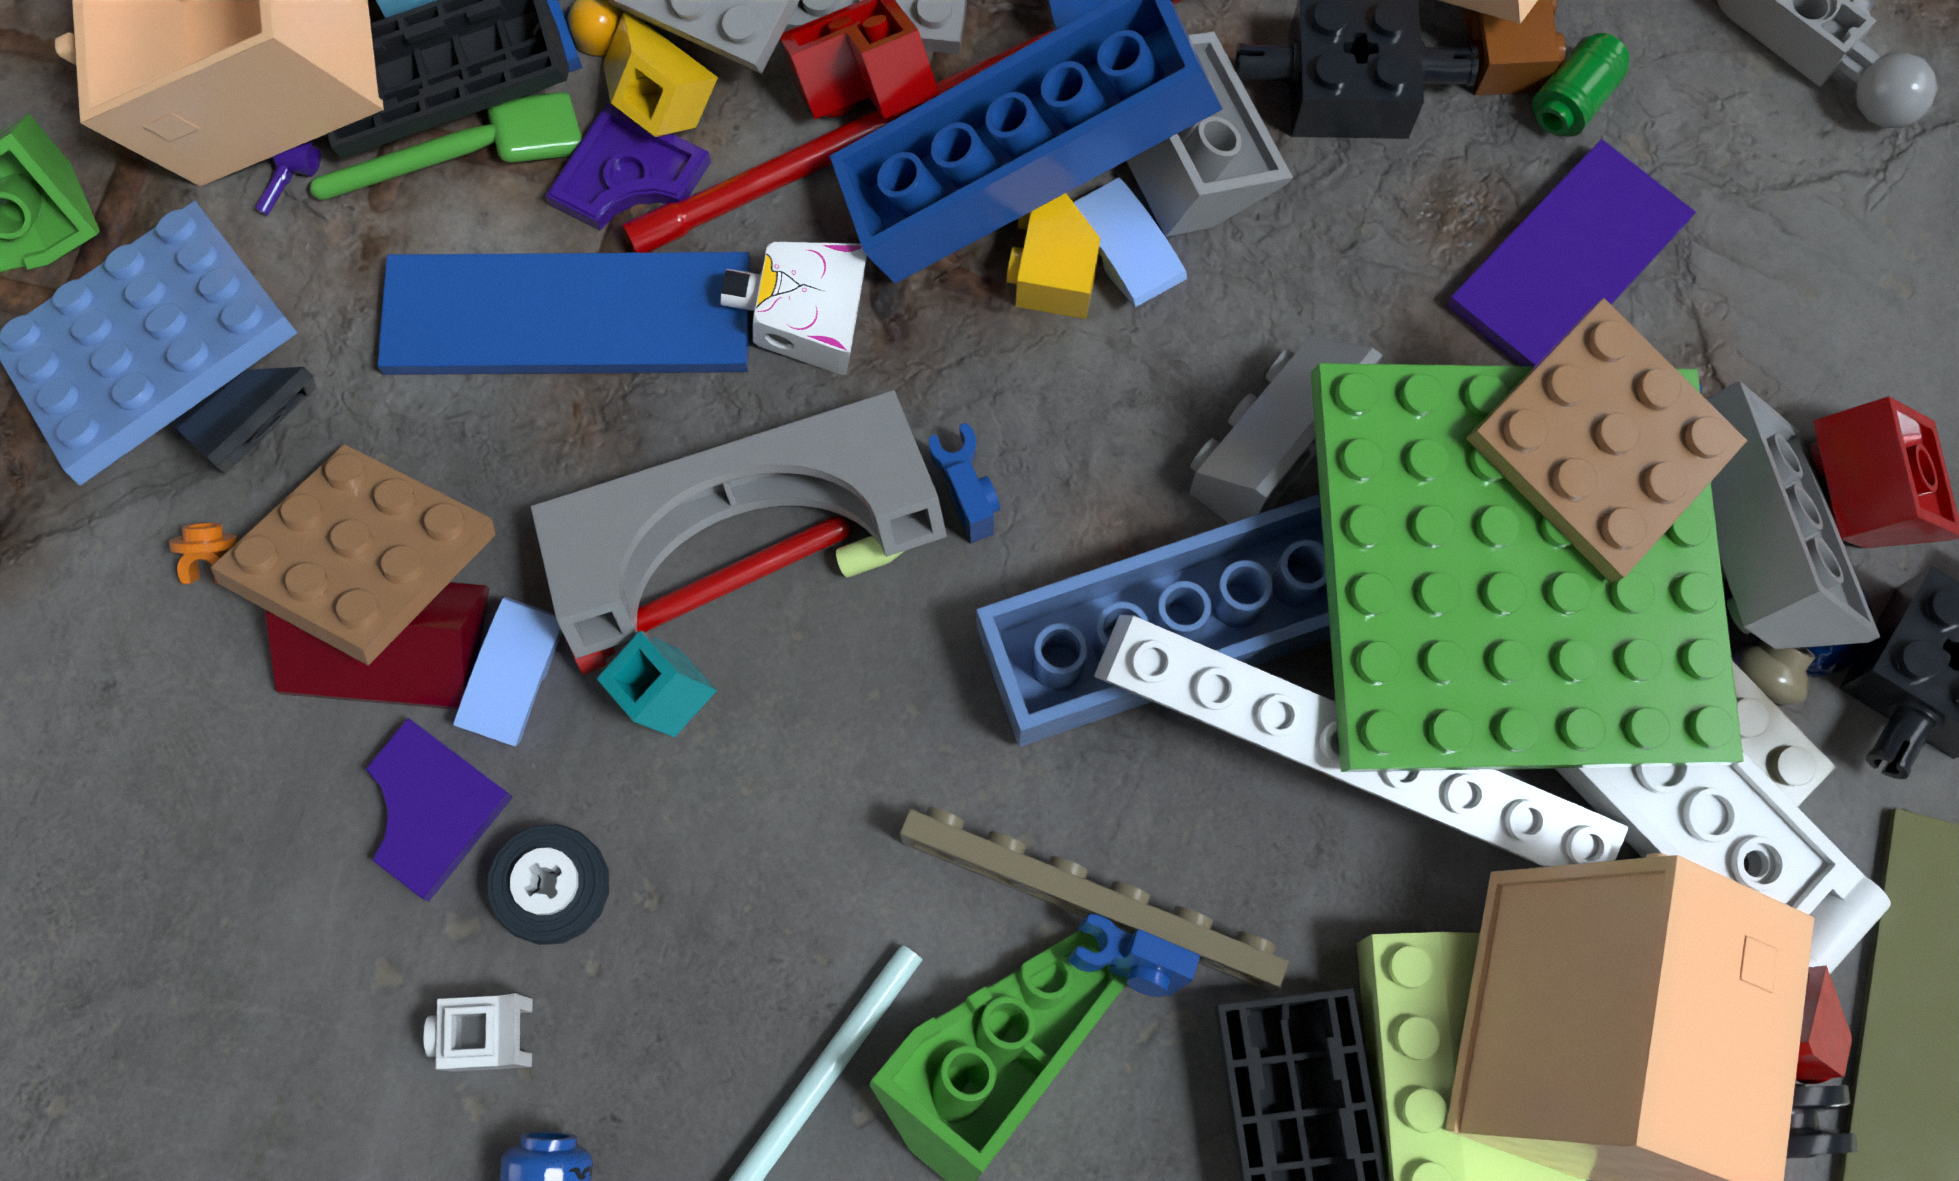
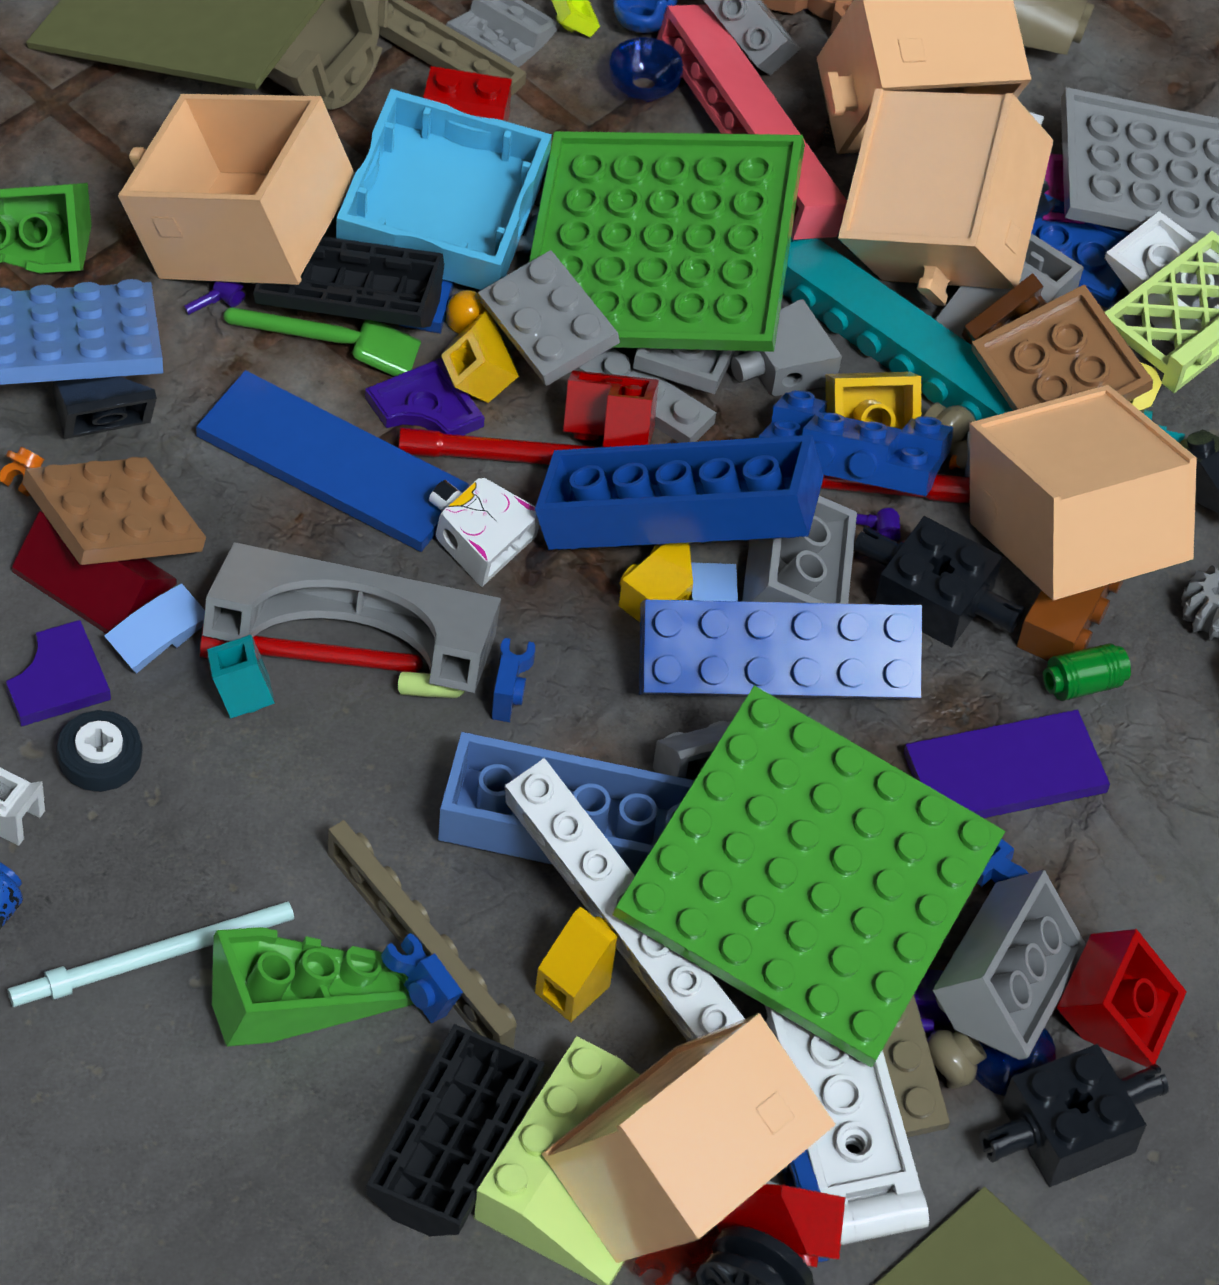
camera: 25 degrees right, 20 degrees down
(1243, 22) = (885, 521): none -> dark purple hand
(1254, 267) = (780, 649): none -> brick
(1302, 828) = (577, 965): none -> yellow slope
(1607, 440) = (908, 825): medium nougat plate -> none

